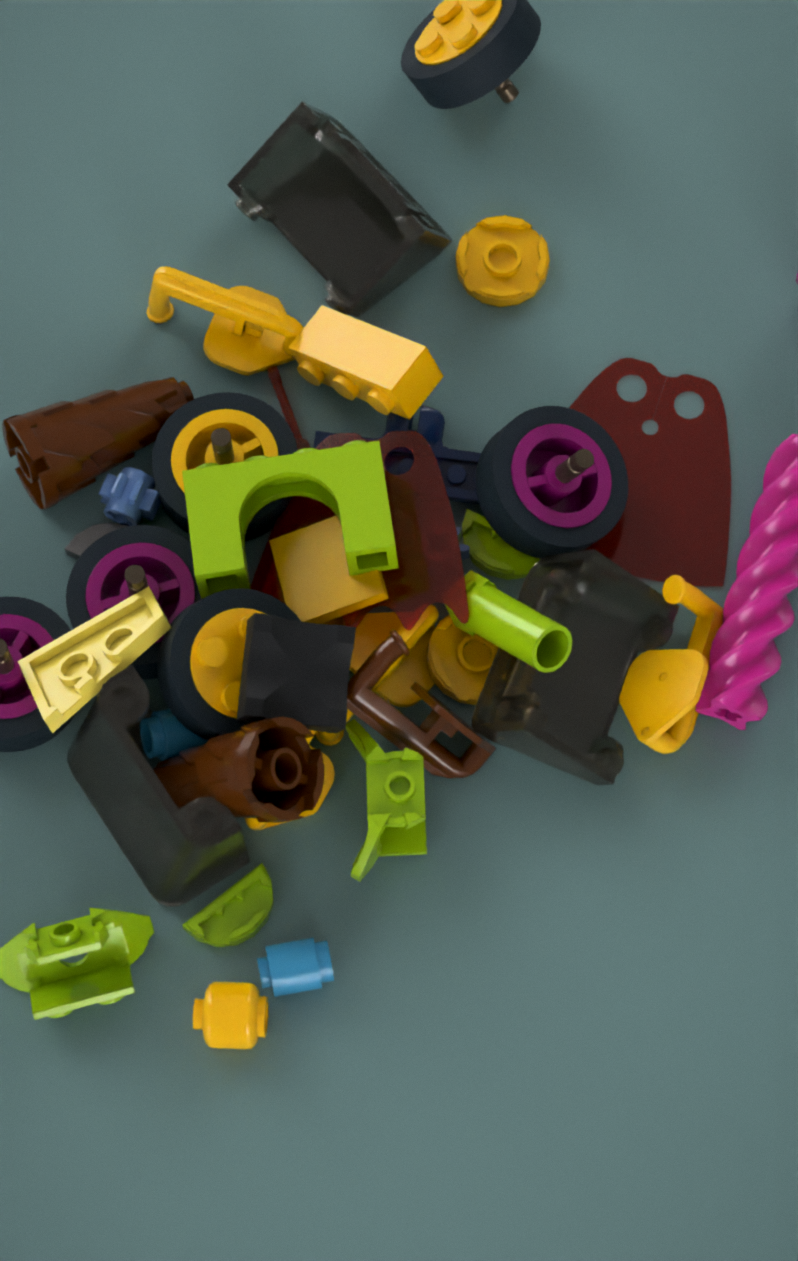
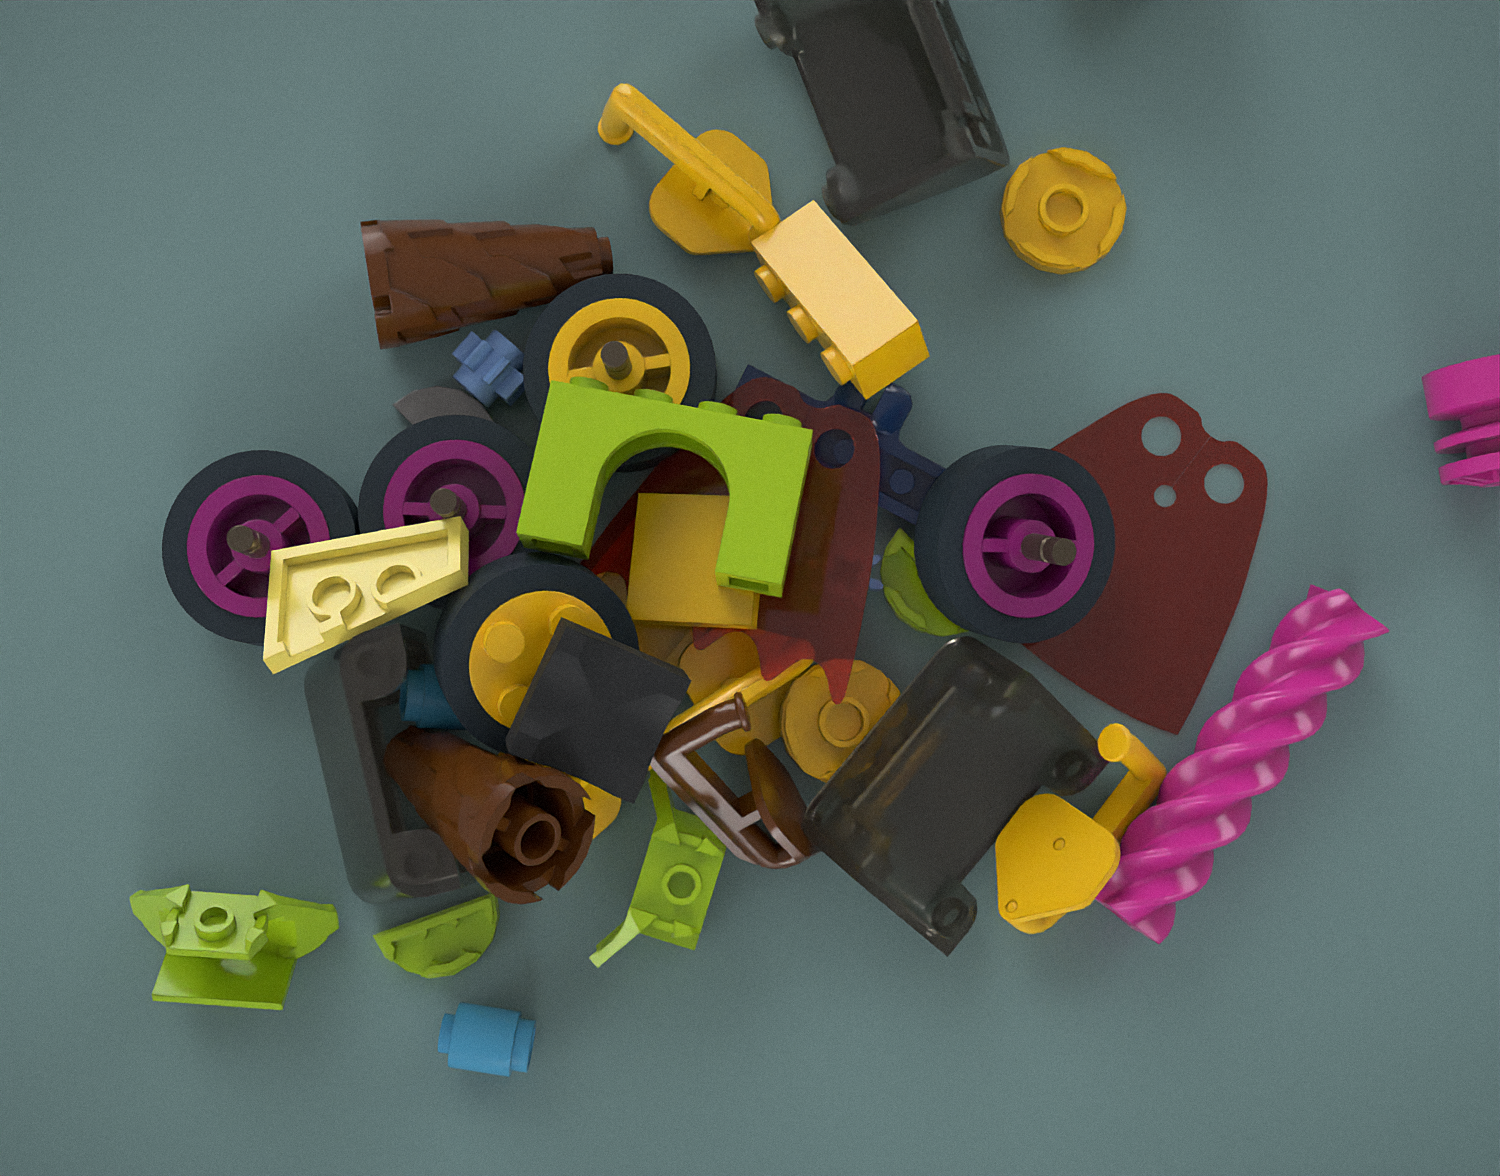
camera: 20 degrees right, 15 degrees up
(231, 1015) = (391, 1071): yellow head -> none
(276, 382) = (726, 369): clear red hinge -> none
(513, 626) = (897, 731): lime piece -> none

